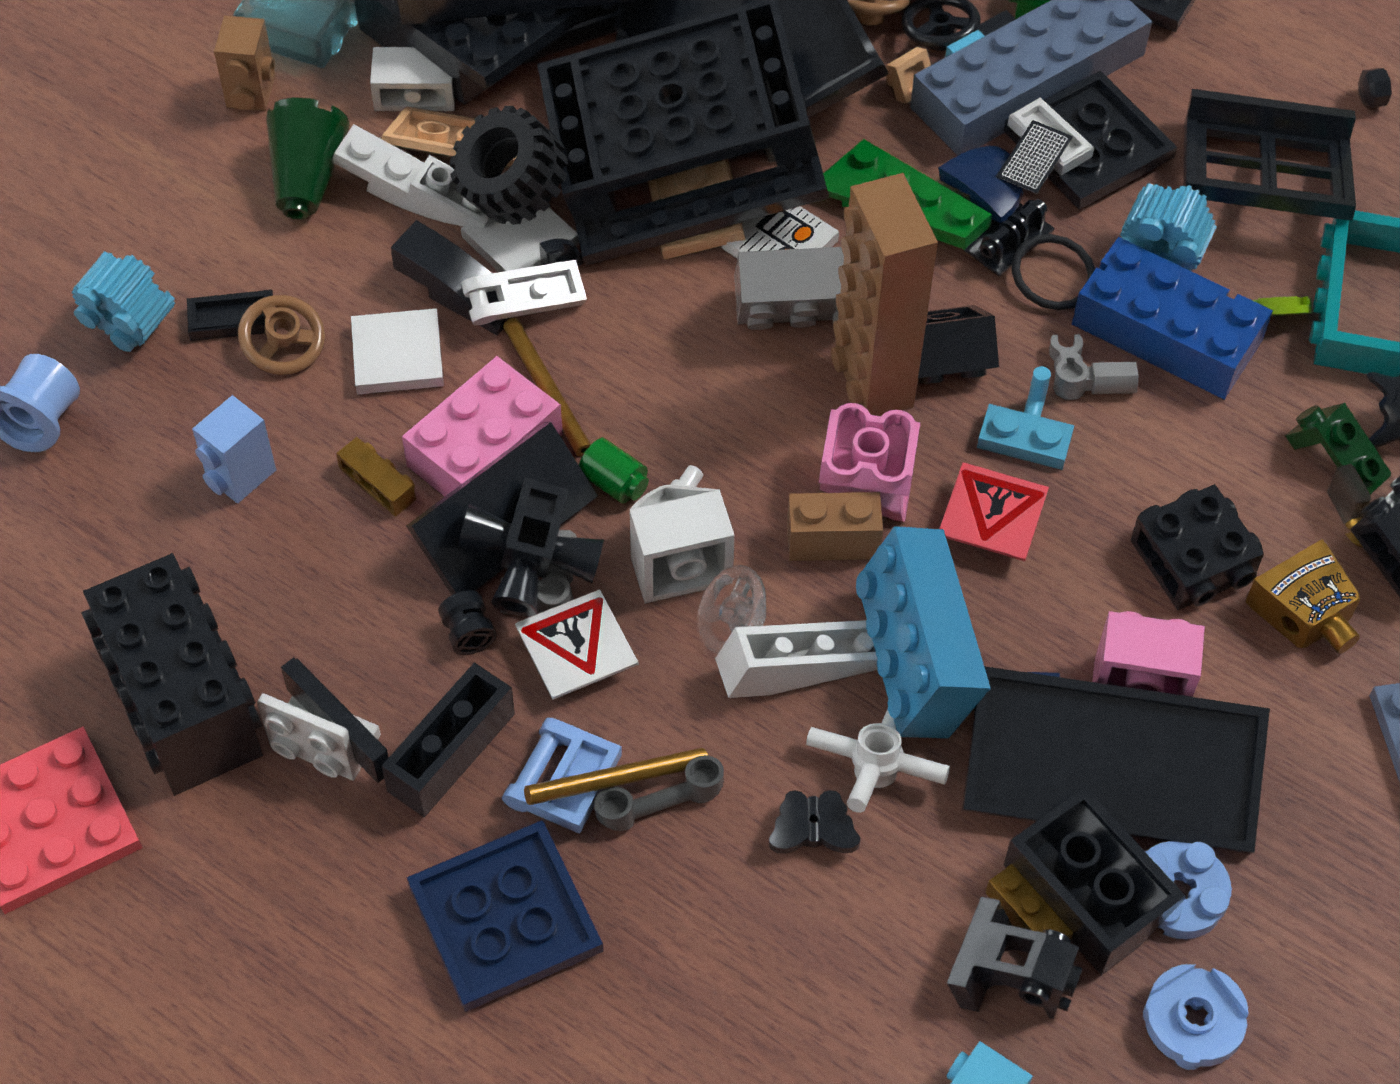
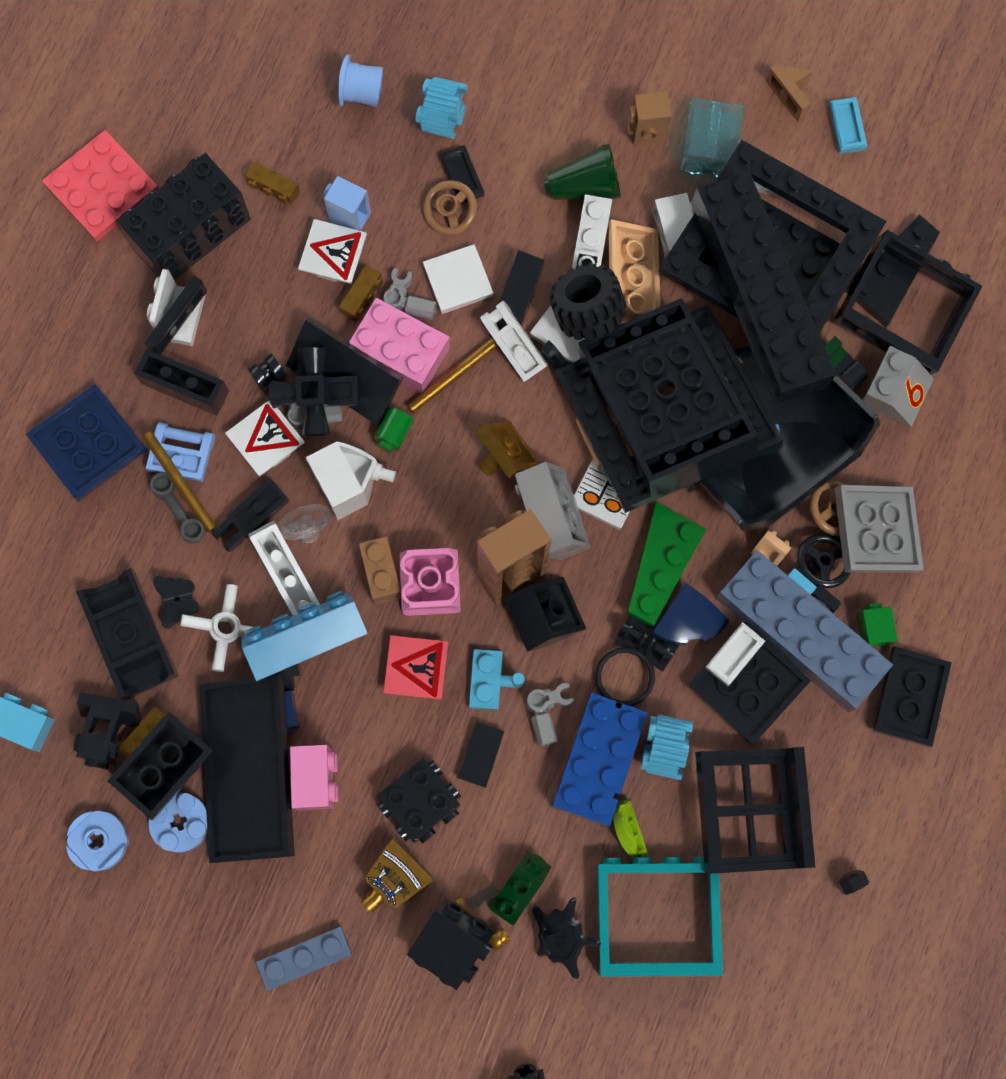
camera: 75 degrees right, 20 degrees up
(154, 545) = (272, 183): none -> pearl gold piece
(297, 496) = (332, 251): none -> white piece
(392, 427) = (410, 305): none -> light grey bar
(693, 332) = (506, 450): none -> pearl gold tile
(696, 689) = (252, 513): none -> black hinge
(855, 900) = (127, 635): none -> black piece
(1034, 156) = (708, 645): black sticker -> none
(1137, 463) = (481, 755): none -> black tile

